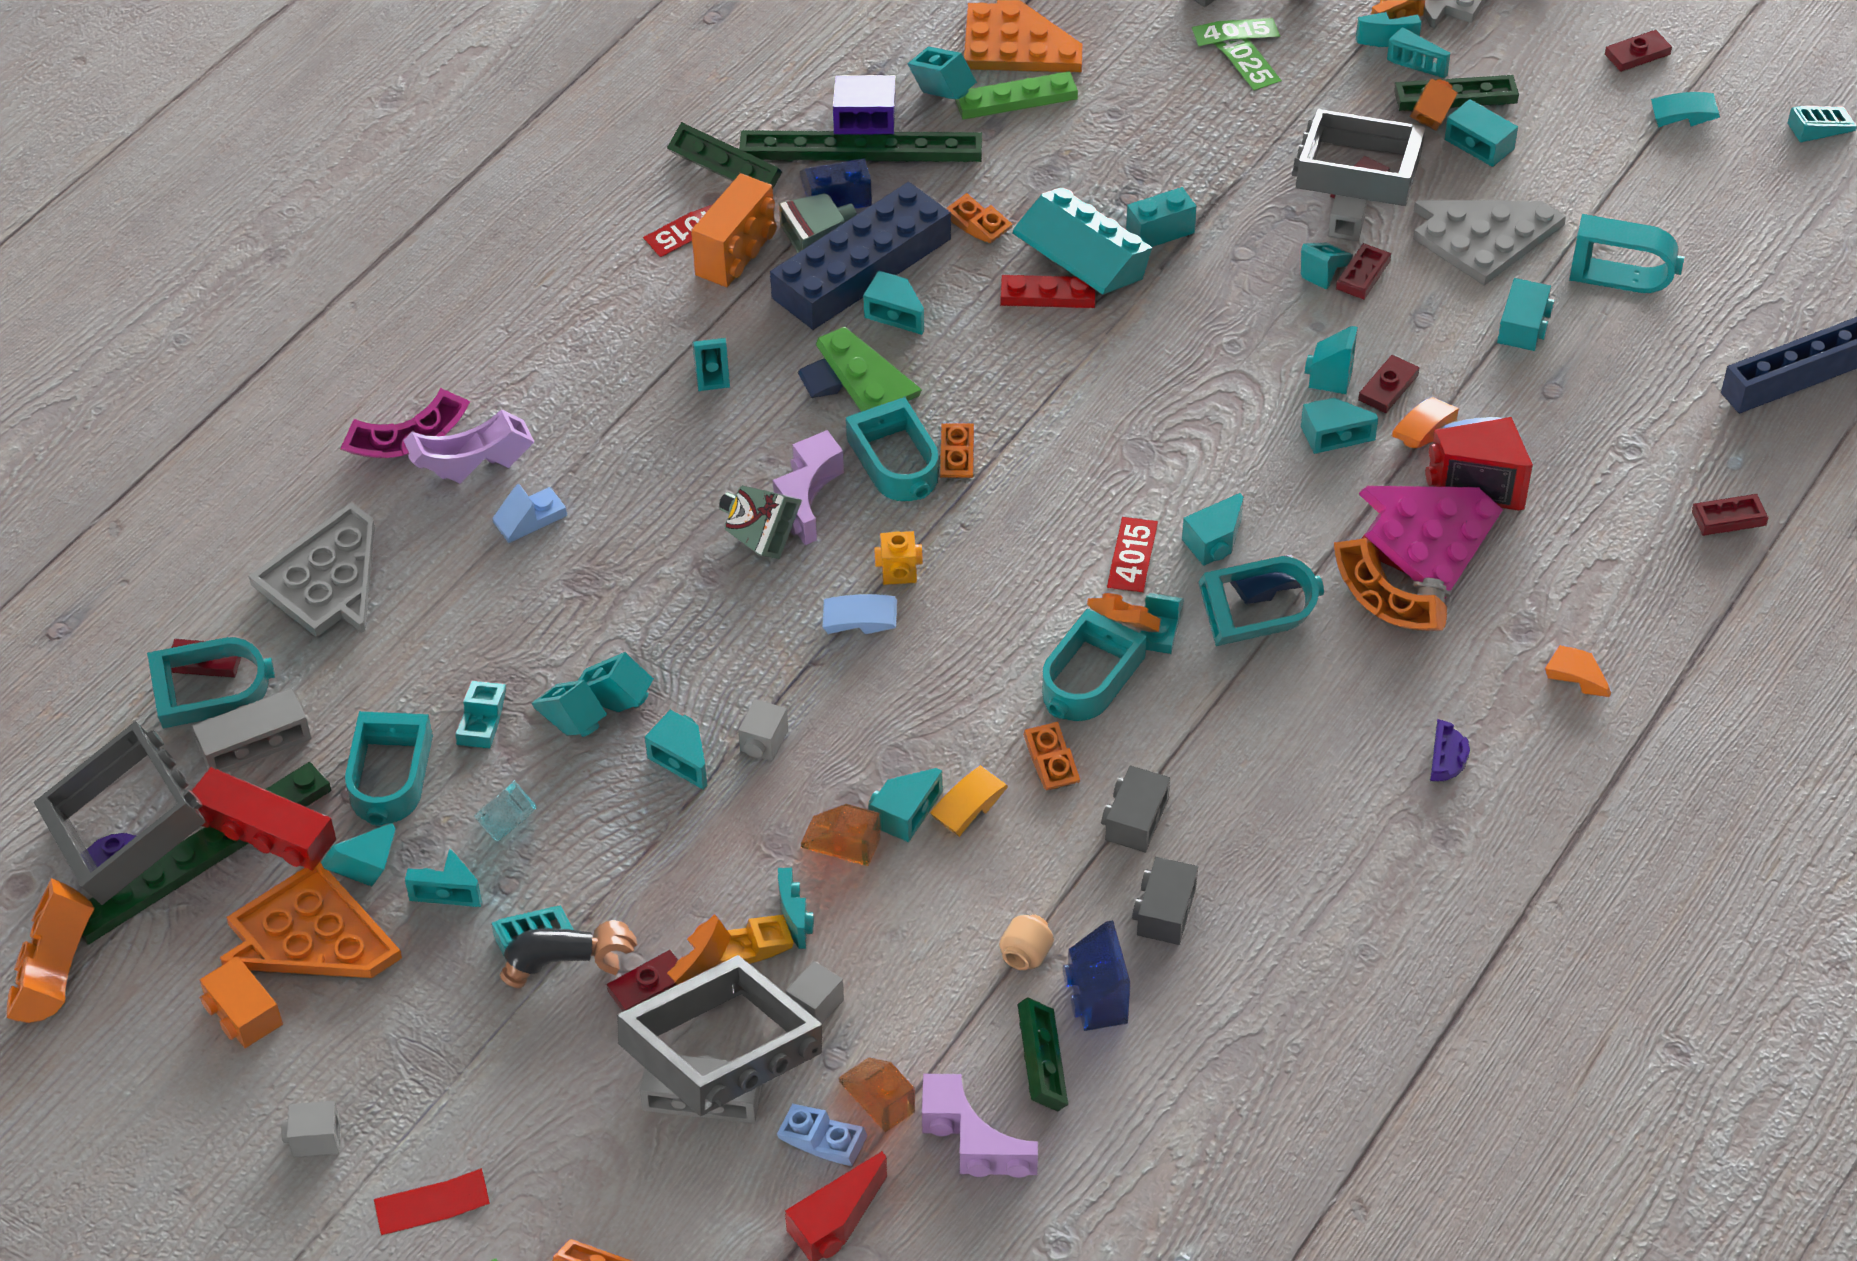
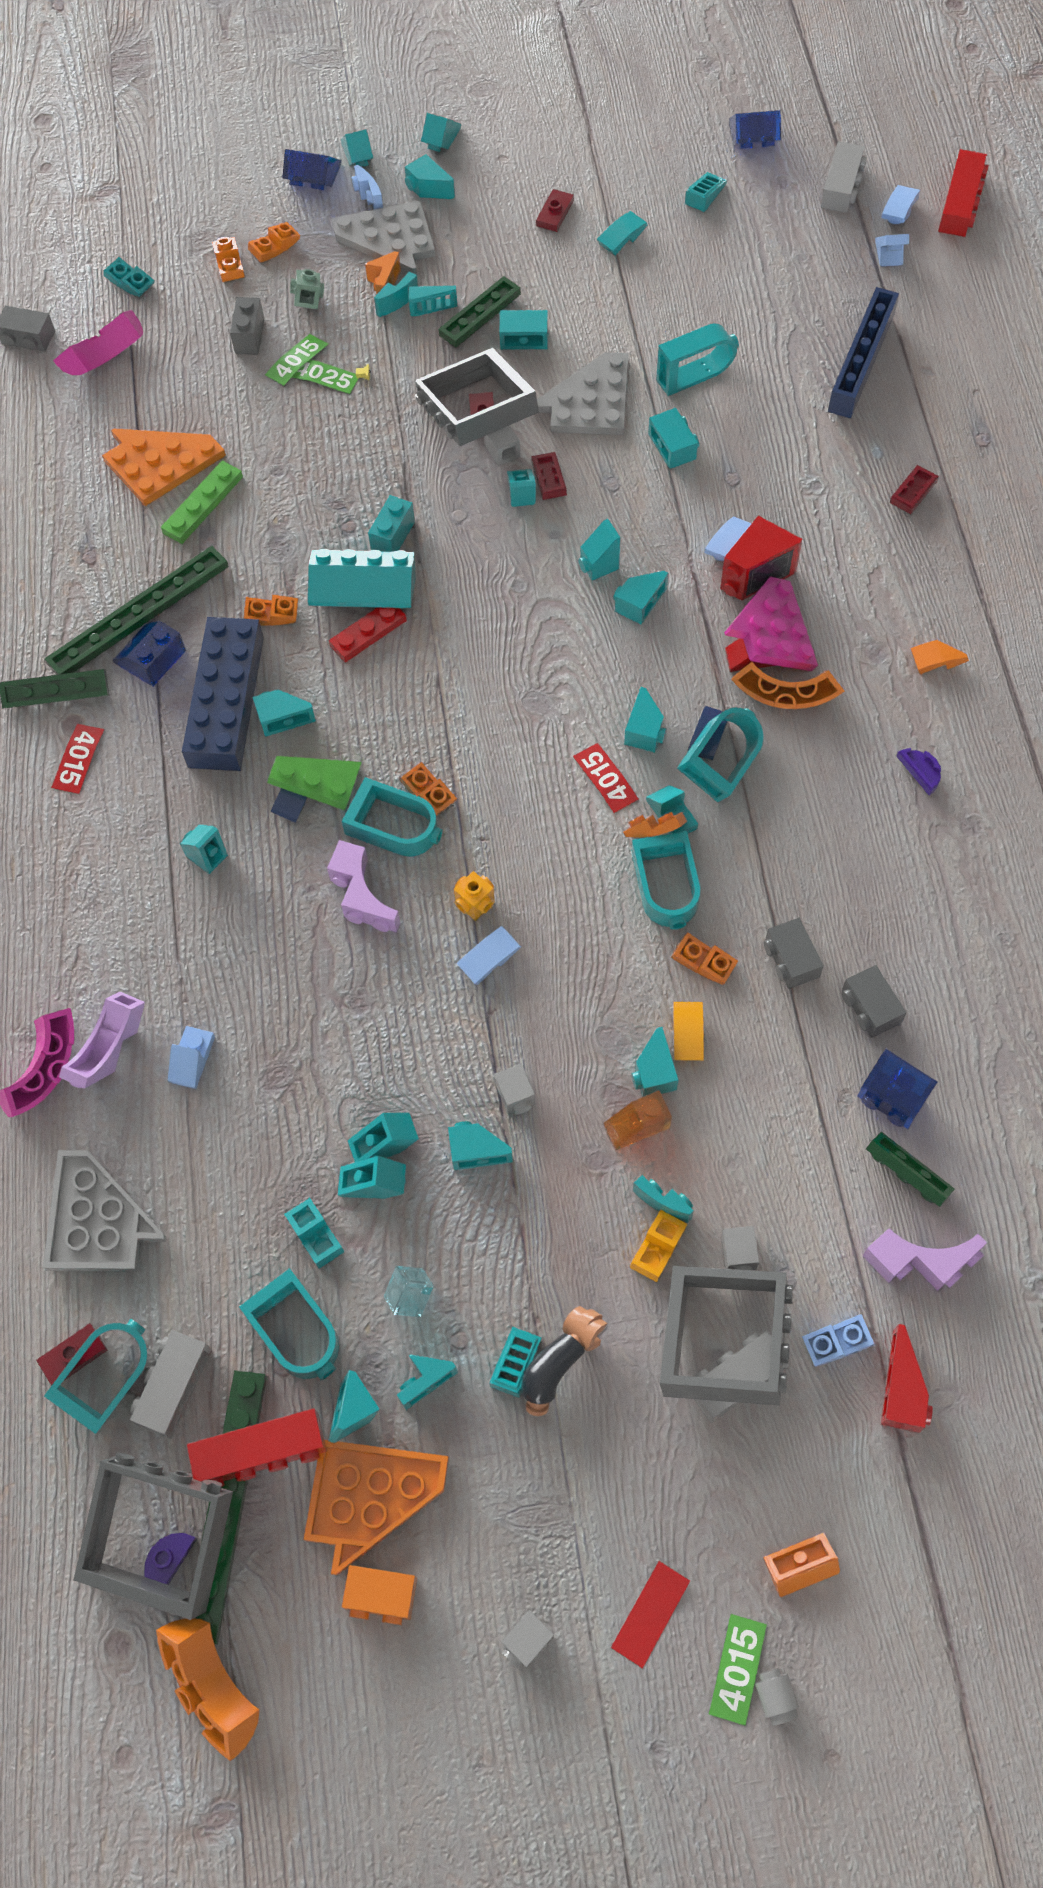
camera: 40 degrees left, 15 degrees up
(643, 981) = (625, 1332): dark red plate -> none
(709, 946) = (646, 1276): orange slope -> none
(733, 230) = (123, 738): orange brick -> none
(760, 518) = (359, 939): torso -> none
(812, 218) = (167, 693): sand green torso -> none
(864, 105) = (113, 579): brick -> none
(880, 1091) = (841, 1279): clear orange slope -> none
(942, 73) = (145, 519): teal brick -> none
(1026, 942) = (822, 1100): light nougat head -> none
(1286, 80) = (363, 372): none -> light yellow piece
(1388, 383) = (639, 543): dark red plate -> none
(1420, 423) = (690, 555): orange slope -> none
(1432, 586) = (813, 668): light grey plate -> none
(1434, 103) = (480, 328): orange brick -> none

